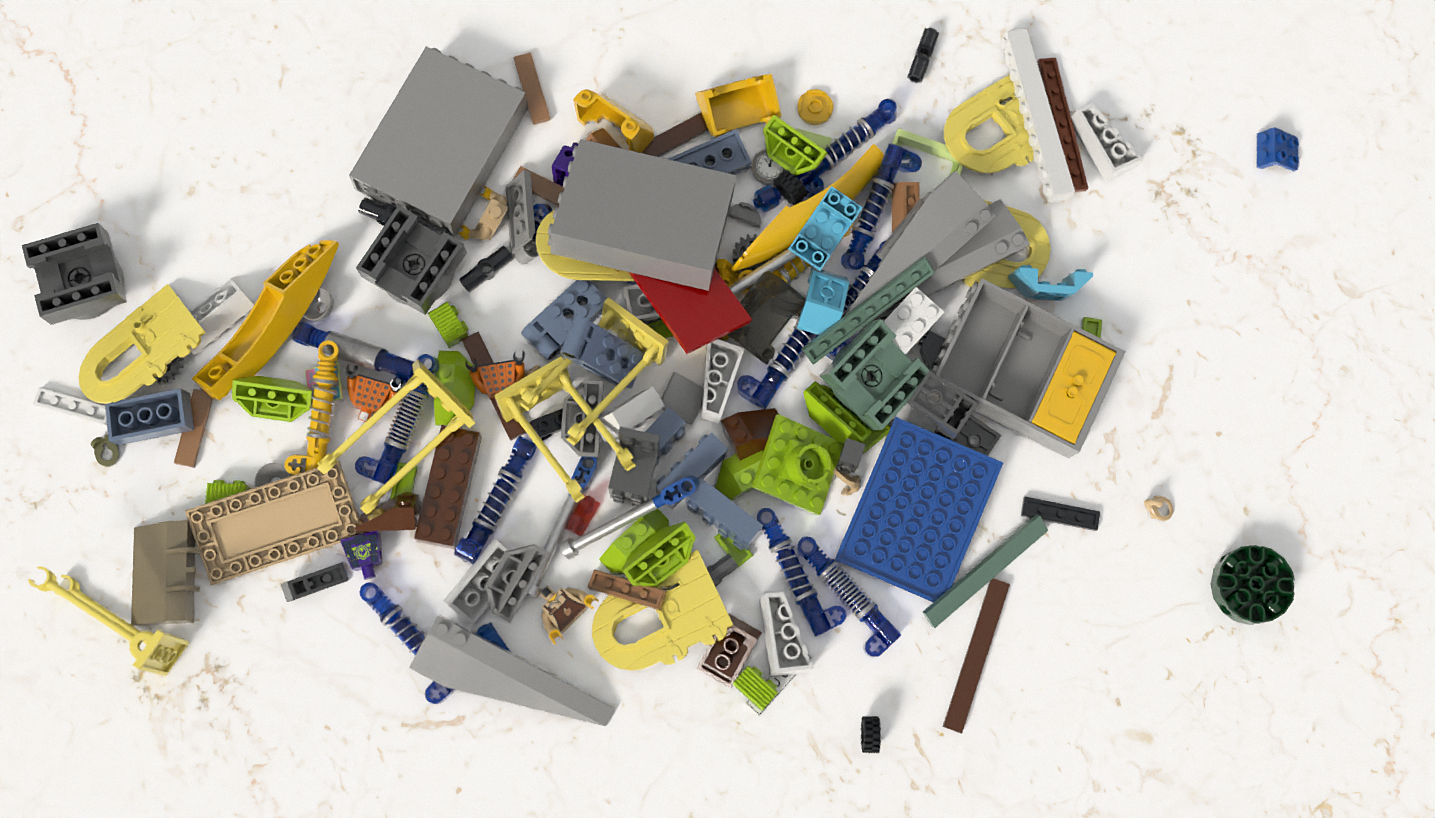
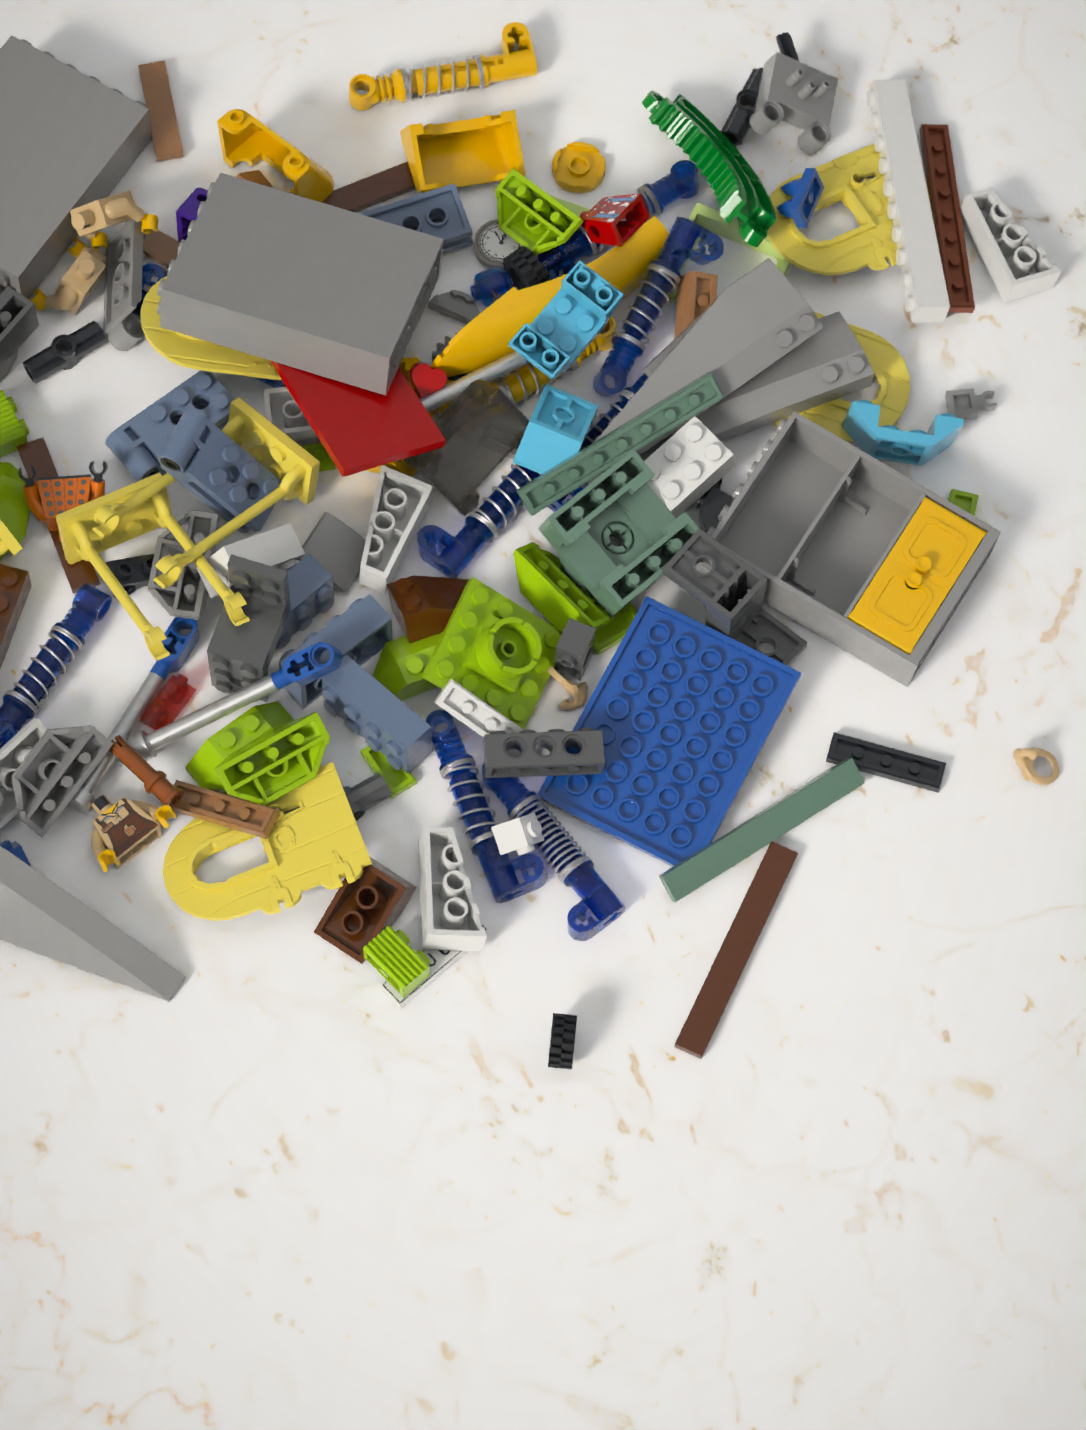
camera: 10 degrees right, 10 degrees down
(505, 171) = (107, 213): none -> tan torso
(580, 575) = (154, 781): none -> dark orange pin
(726, 48) = (448, 77): none -> yellow piece
(733, 273) = (427, 378): none -> red tile
(799, 514) = (475, 712): none -> white tile
(809, 544) = (531, 763): none -> dark grey brick
(827, 592) = (518, 834): none -> white brick
(847, 148) = (615, 219): none -> red torso
(917, 105) = (720, 161): none -> green gear
(955, 46) = (796, 96): none -> light grey piece
(972, 117) = (806, 194): none -> blue tile
(1088, 256) = (965, 403): none -> light grey plate

